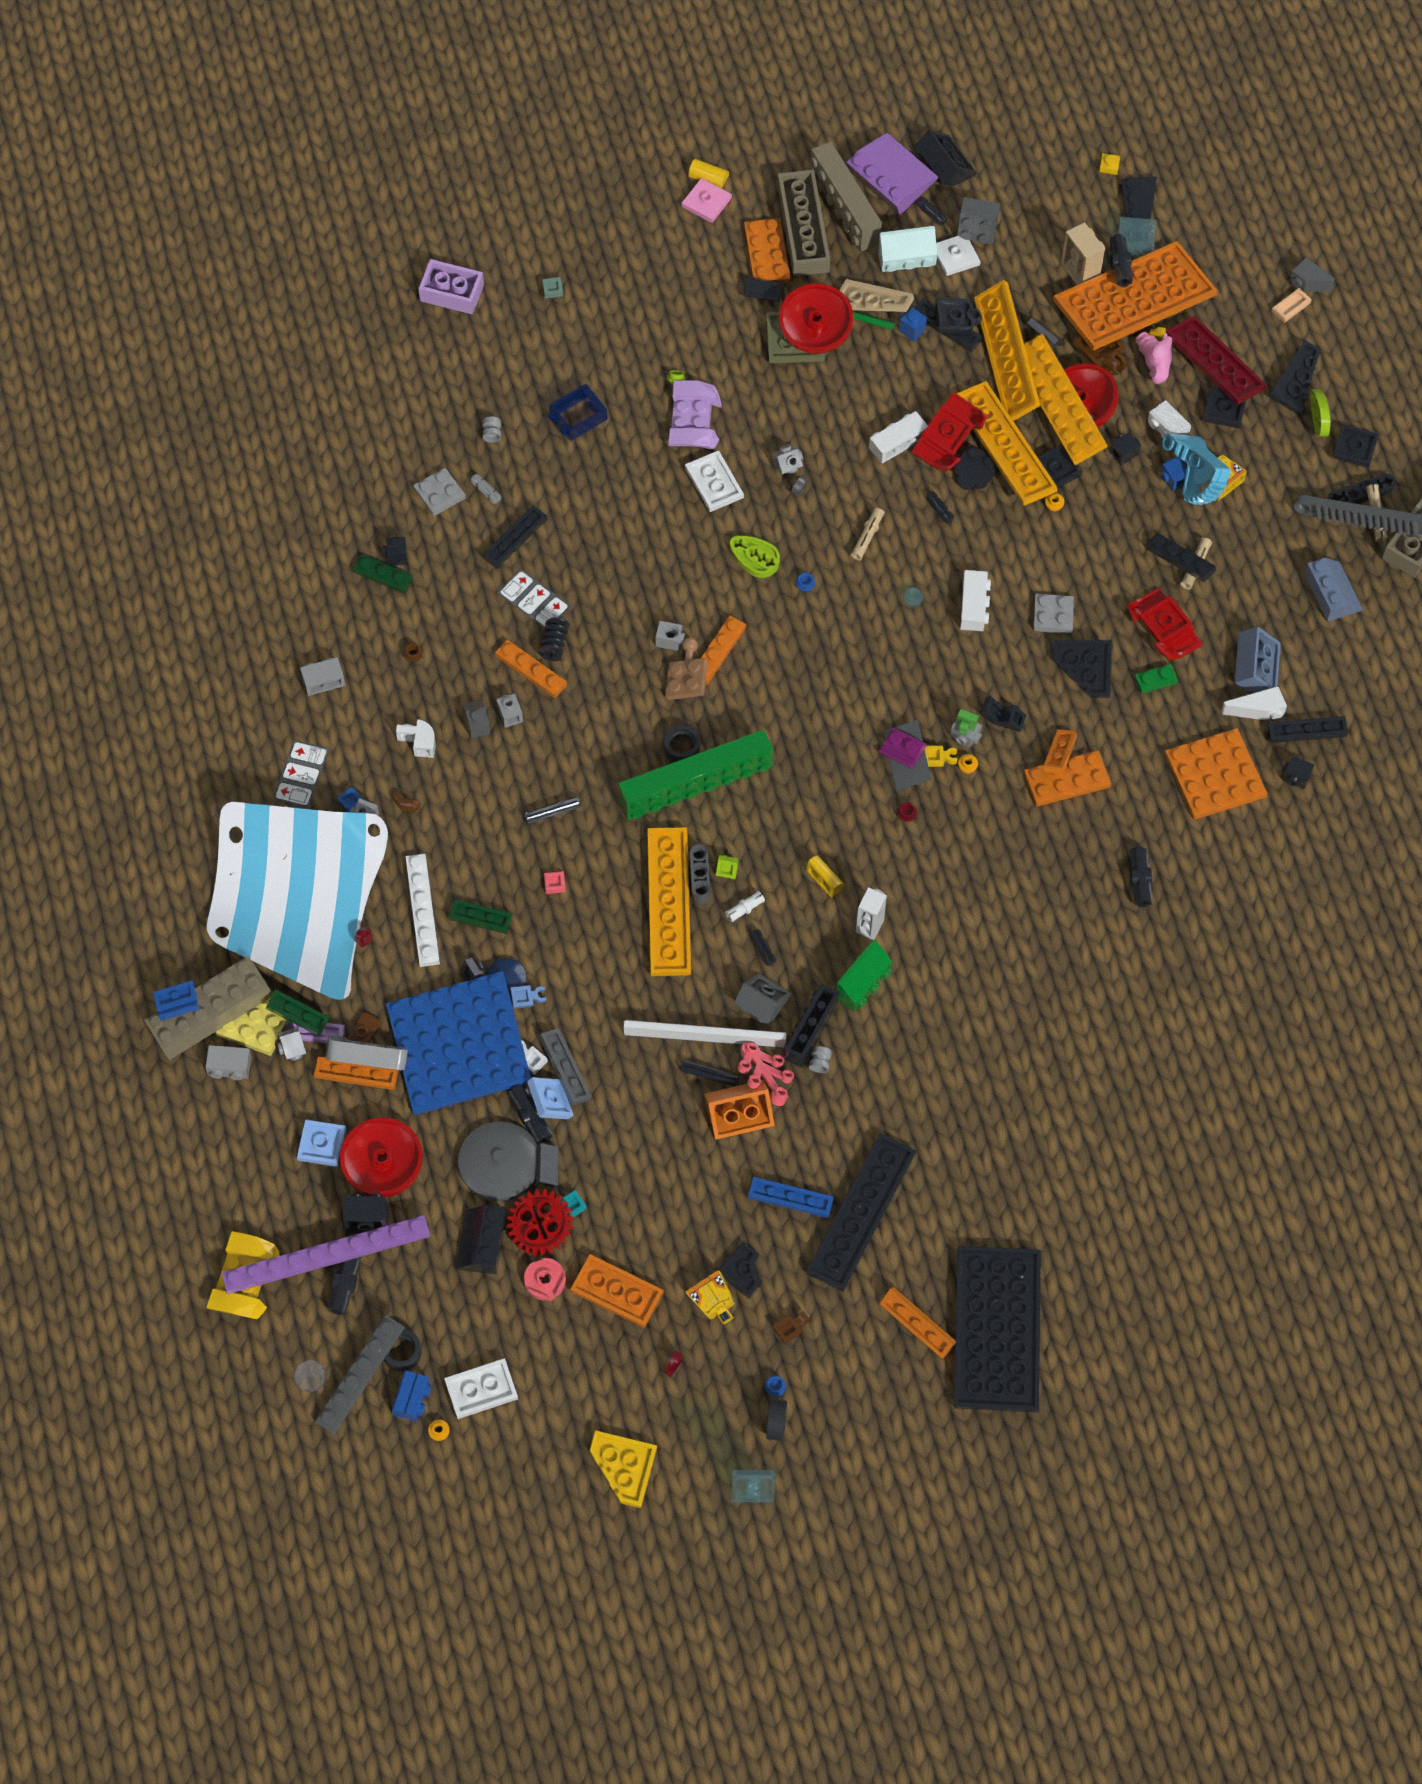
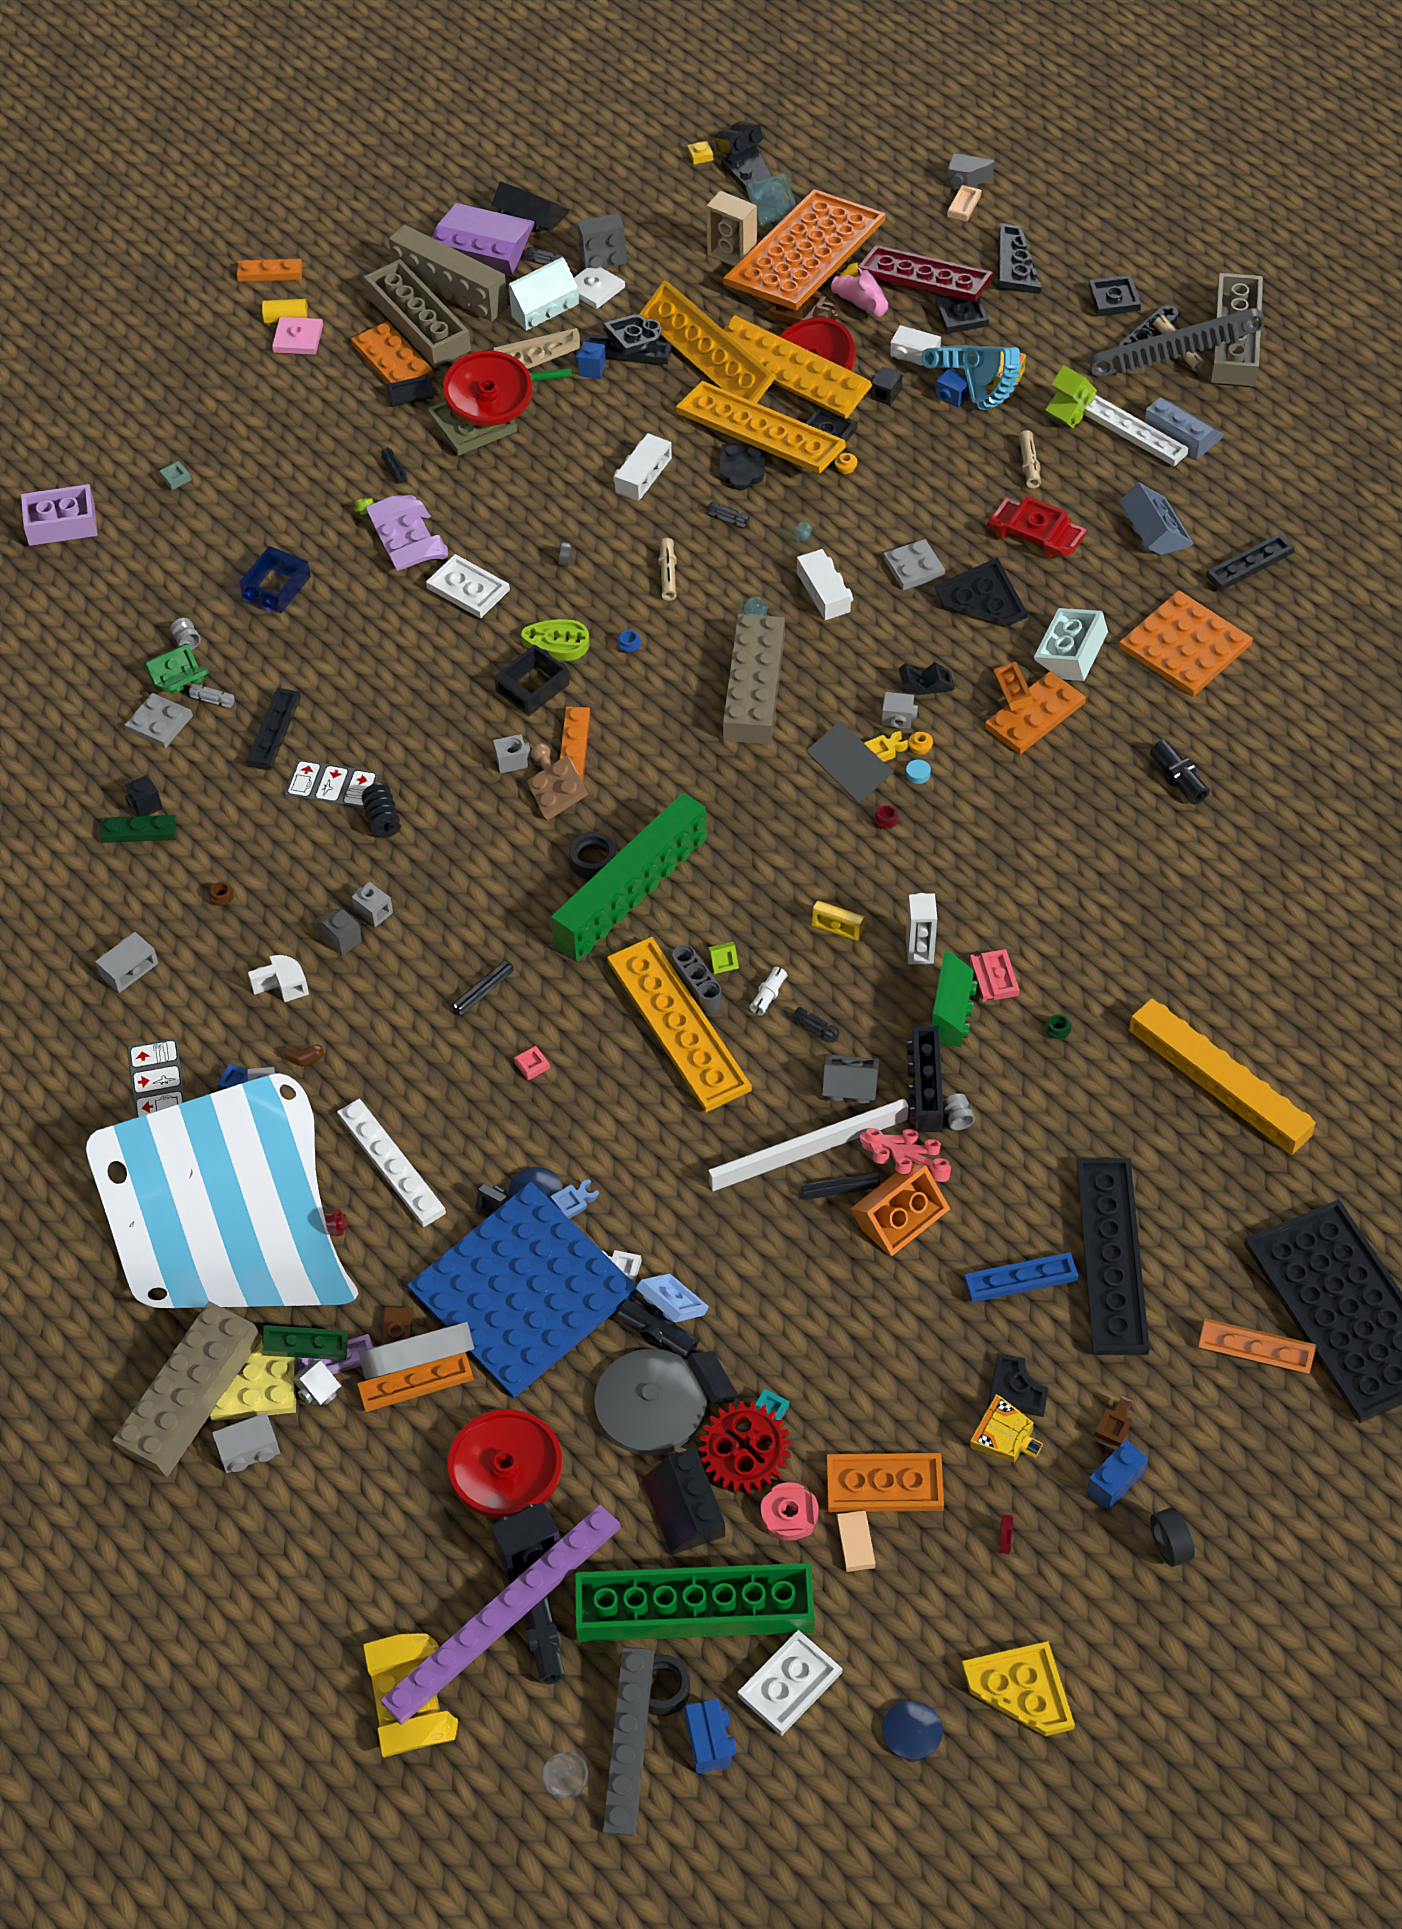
camera: 25 degrees left, 10 degrees down
(176, 1000) = (145, 1394): blue plate -> none
(321, 1143) = (418, 1484): light blue plate -> none
(438, 1436) = (770, 1769): light orange plate -> none
(449, 1308) = (694, 1602): none -> green brick
(469, 458) = (175, 669): none -> green bracket
(480, 916) = (466, 1137): dark green plate -> none
(531, 668) = (370, 853): orange plate -> none
(540, 1457) = (912, 1730): none -> dark blue dish
(565, 1066) = (667, 1256): dark grey plate -> none
(576, 1319) = (856, 1541): none -> light nougat tile
(713, 568) = (528, 702): none -> black window
(716, 350) = (393, 465): none -> black axle
(717, 129) = (269, 270): none -> orange plate
(753, 1485) = (1204, 1624): clear light blue tile -> none
(769, 1362) = (1117, 1475): none -> blue brick
(775, 1386) = (1140, 1501): blue plate -> none
(787, 459) = (536, 532): light grey brick -> none
(876, 656) = (754, 679): none -> dark tan brick
(902, 748) = (841, 755): magenta plate -> none
(908, 970) = (994, 975): none -> coral plate
(932, 1026) = (1061, 1021): none -> dark green plate
(948, 432) = (695, 439): red piece -> none
(952, 786) = (918, 771): none -> medium azure tile
(966, 721) = (898, 694): bright green tile -> none
(986, 548) = (803, 531): none -> clear light blue plate
(1019, 1122) = (1222, 1076): none -> light orange brick
(1048, 334) = (727, 314): black tile -> none
(1121, 260) = (774, 222): black piece -> none
(1126, 736) = (1072, 643): none -> light aqua slope
(1144, 165) = (738, 137): none -> black brick
(1156, 679) = (1062, 581): green plate -> none
(1180, 557) = (1012, 457): black plate -> none
(1256, 526) = (1072, 397): none -> lime brick
(1260, 705) = (1185, 560): white slope -> none
(1289, 568) = (1136, 431): none -> white plate
(1297, 772) = (1269, 604): black brick -> none
(1320, 413) = (1062, 277): lime piece -> none

